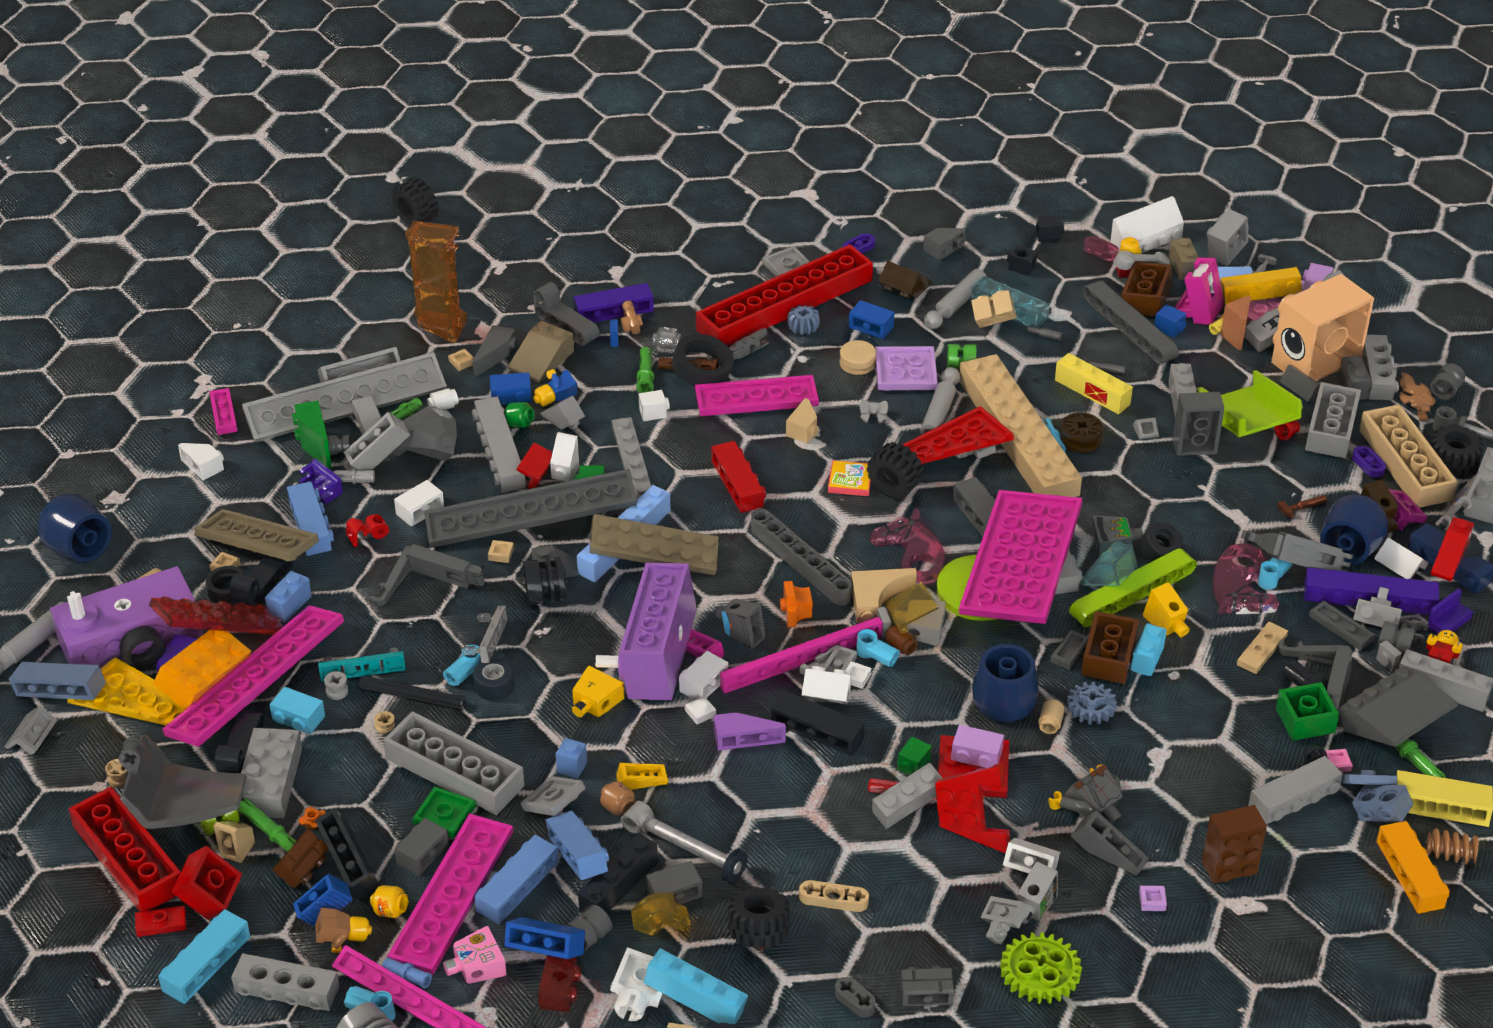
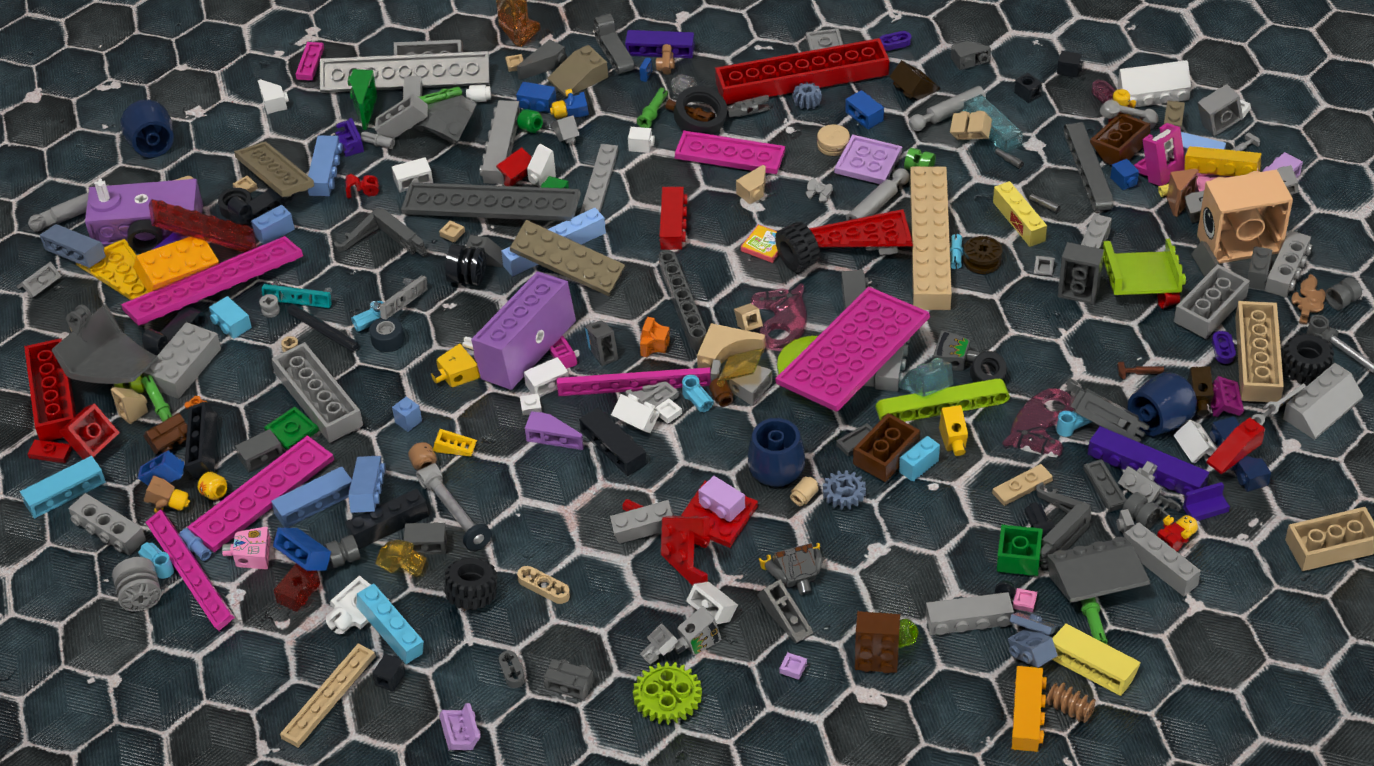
camera: 25 degrees right, 5 degrees up
(338, 444) = (377, 109): dark grey wheel -> none
(553, 796) = (375, 440): light grey plate -> none
(884, 555) = (748, 317): none -> tan brick
(914, 756) = (672, 490): green brick -> none

